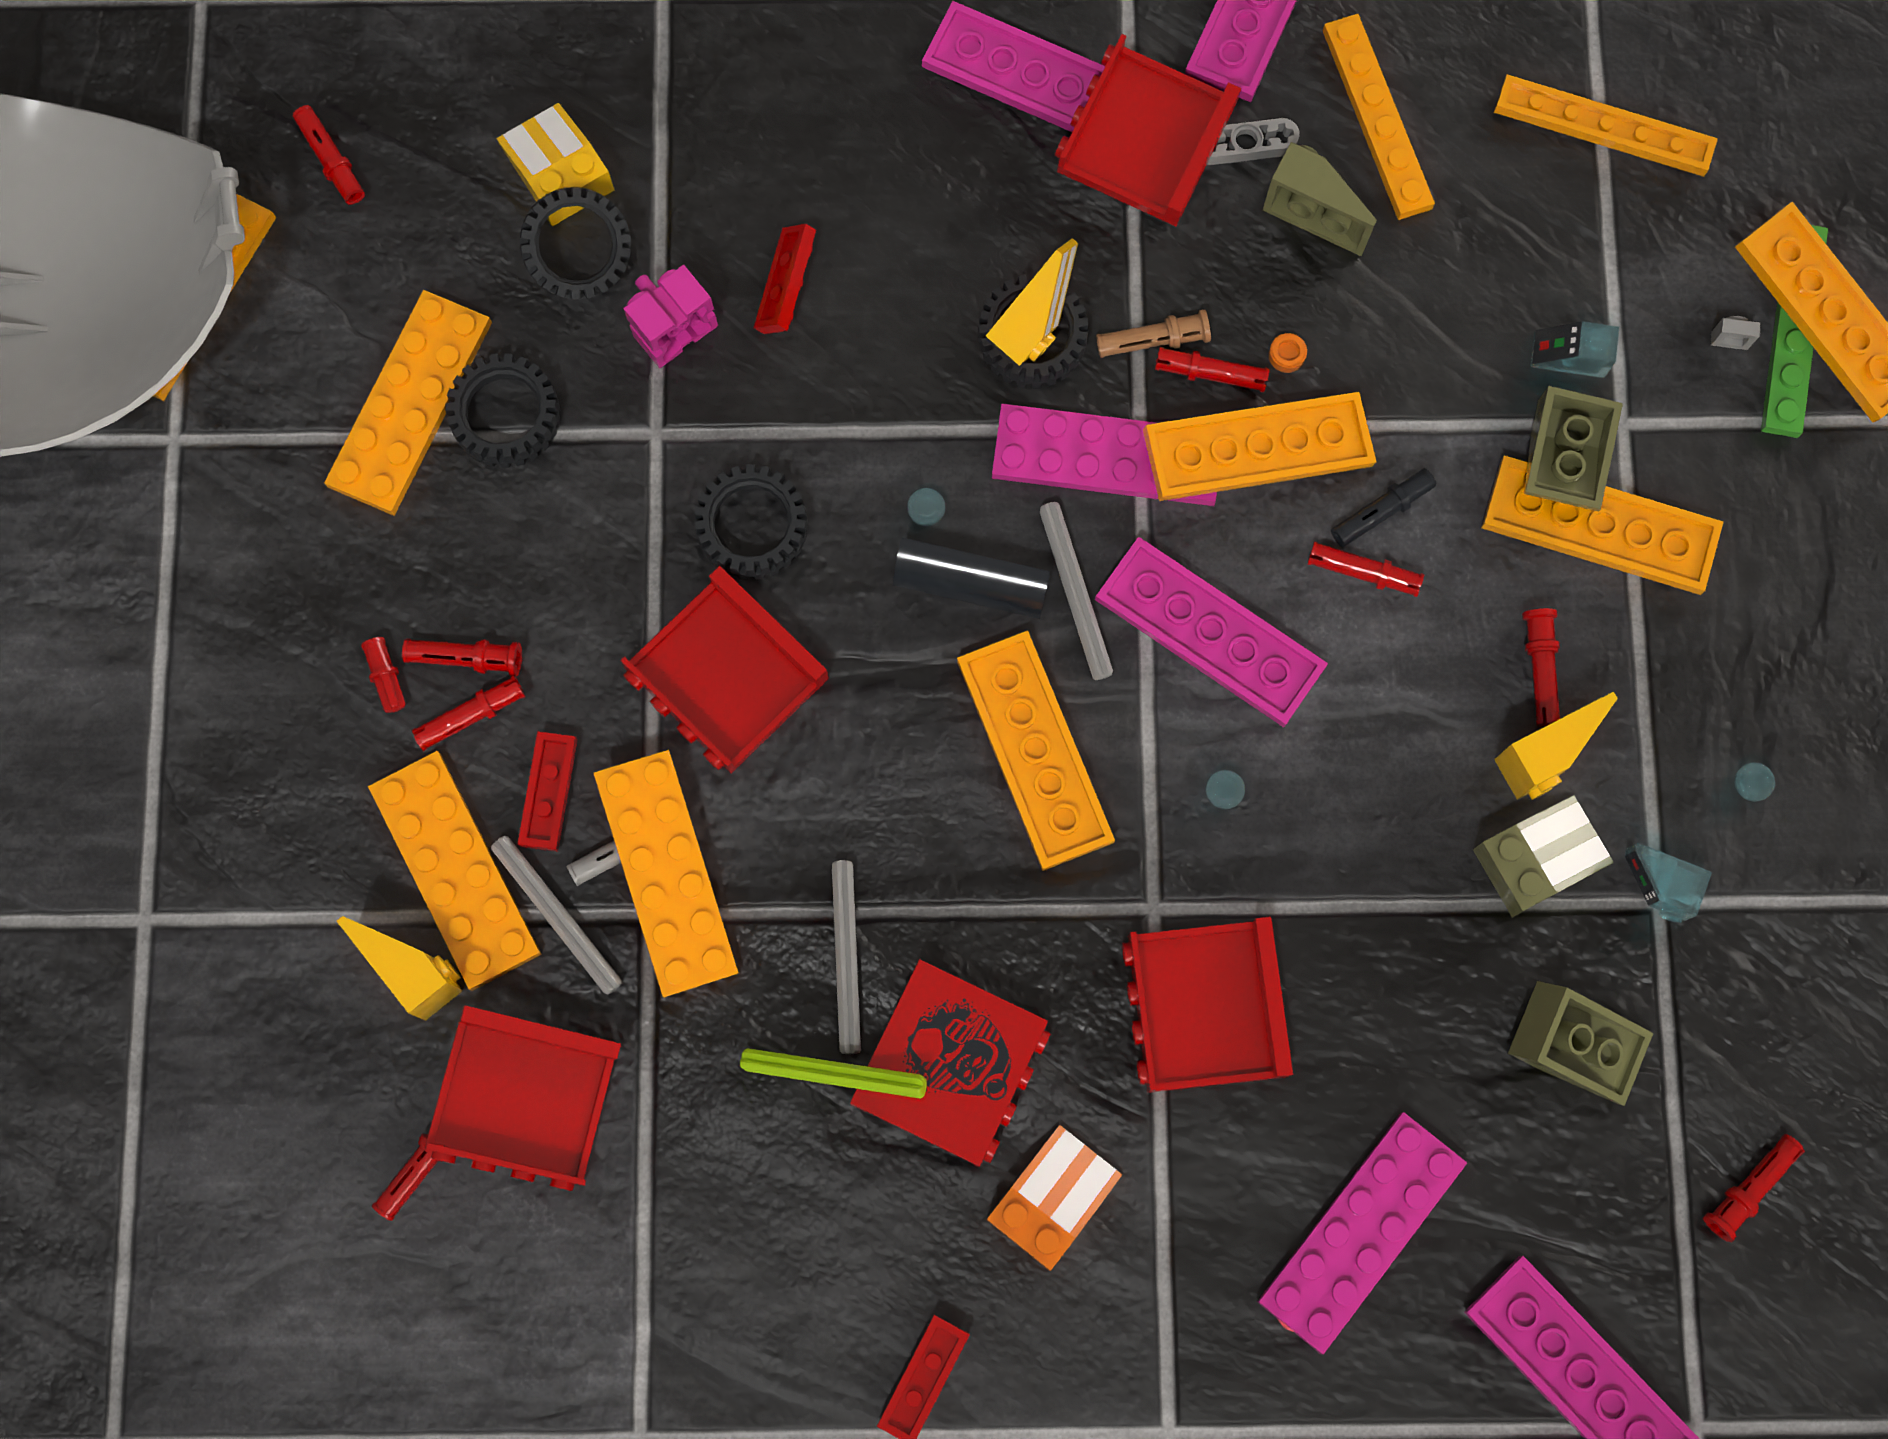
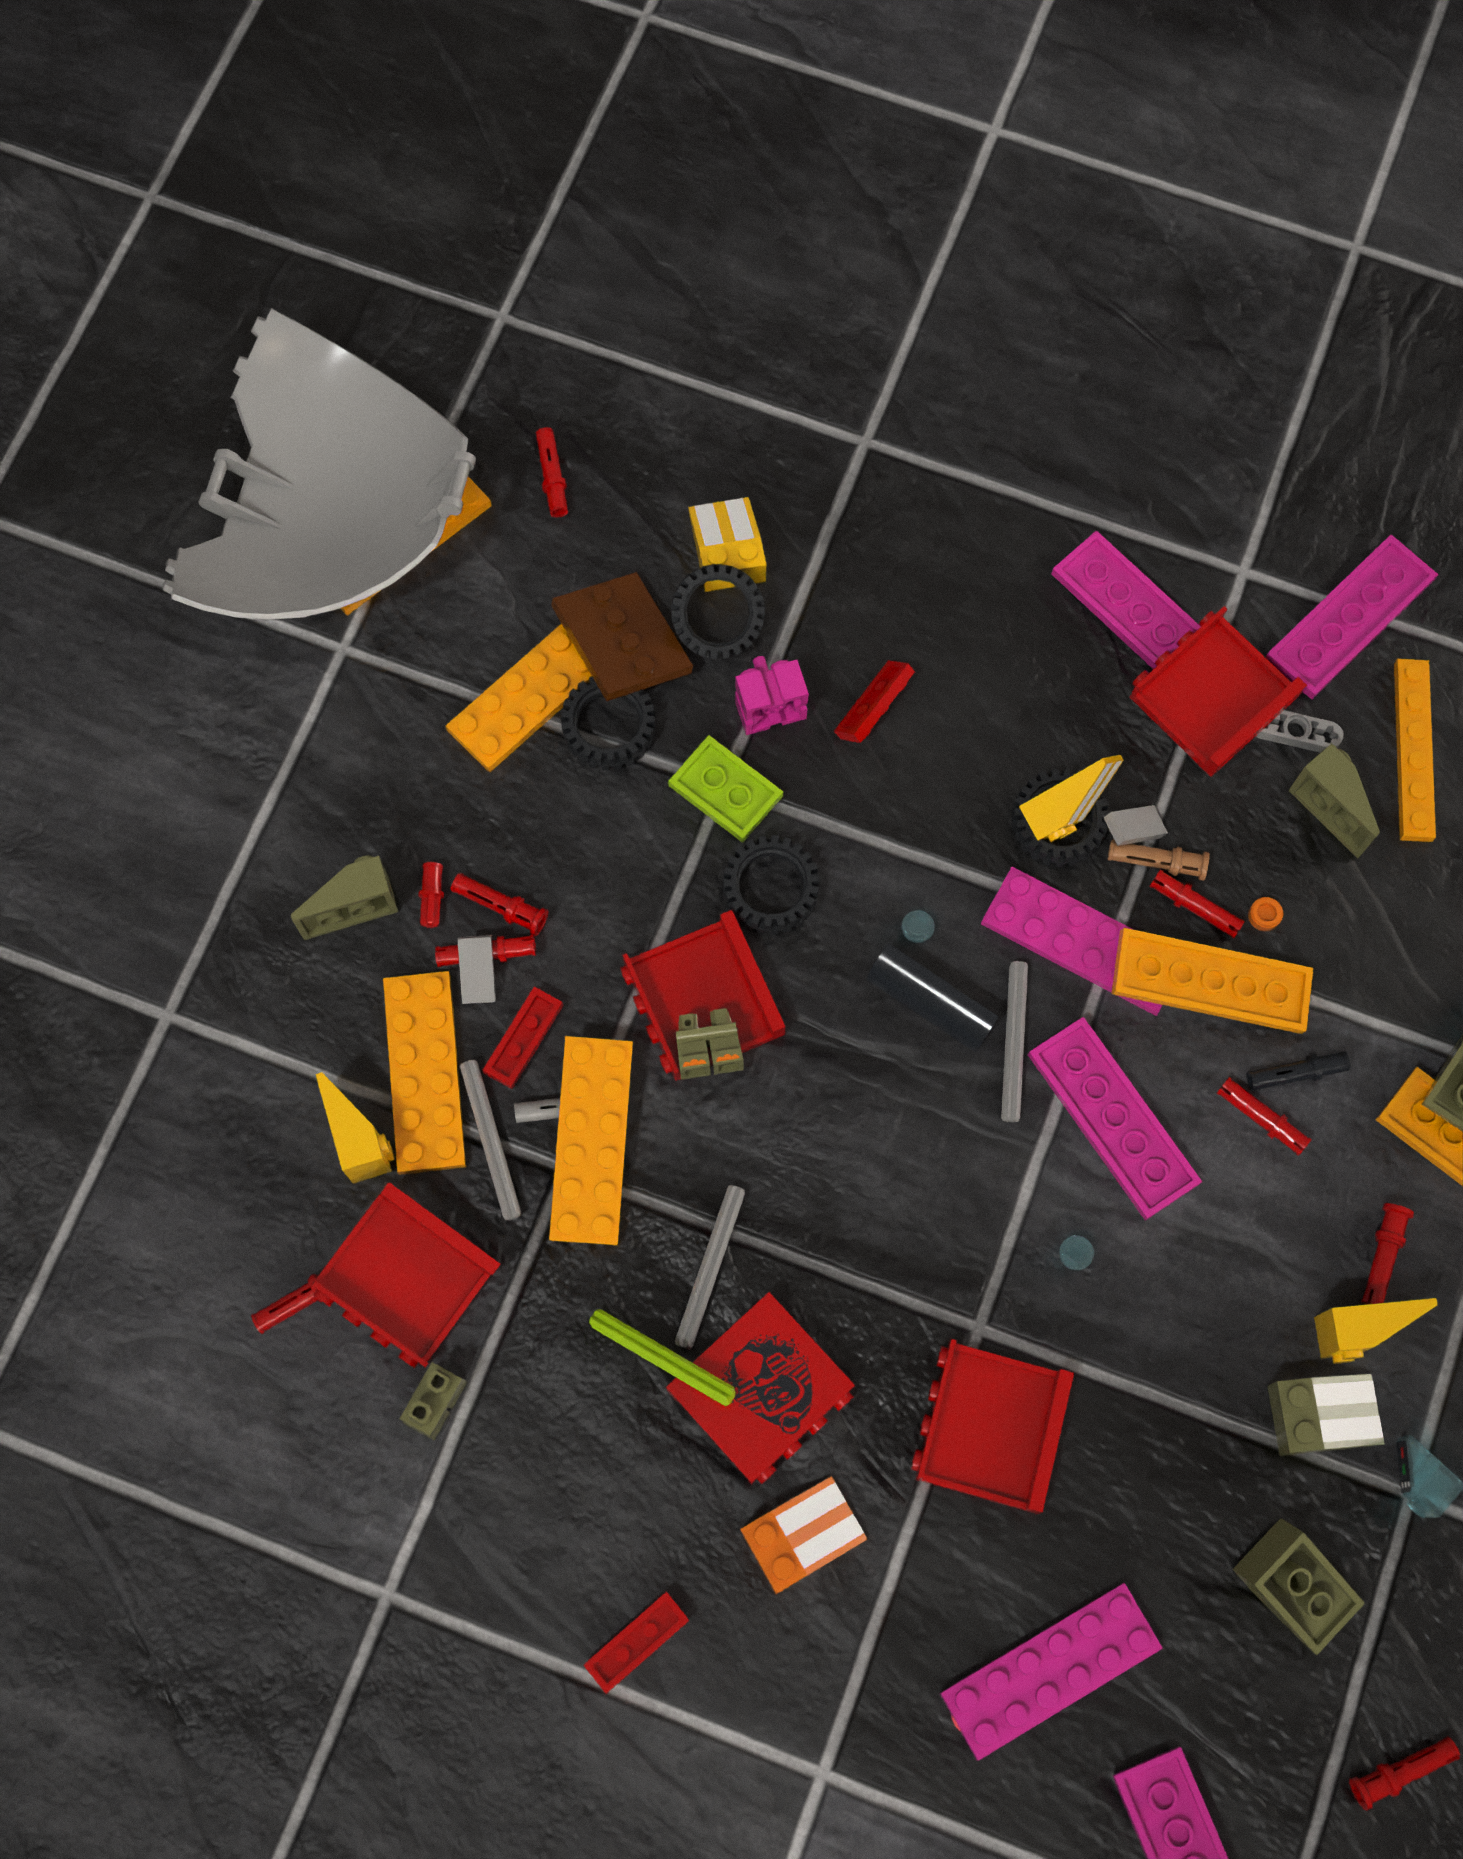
camera: 20 degrees right, 5 degrees down
(295, 713) = (349, 898): none -> olive slope
(467, 737) = (476, 969): none -> light grey tile
(479, 310) = (621, 636): none -> reddish brown plate
(604, 1216) = (430, 1401): none -> olive hips
(660, 435) = (725, 788): none -> lime plate
(763, 710) = (721, 1039): none -> olive hips
(1035, 750) = (930, 1159): light orange plate -> none
(1116, 309) = (1135, 825): none -> light grey tile

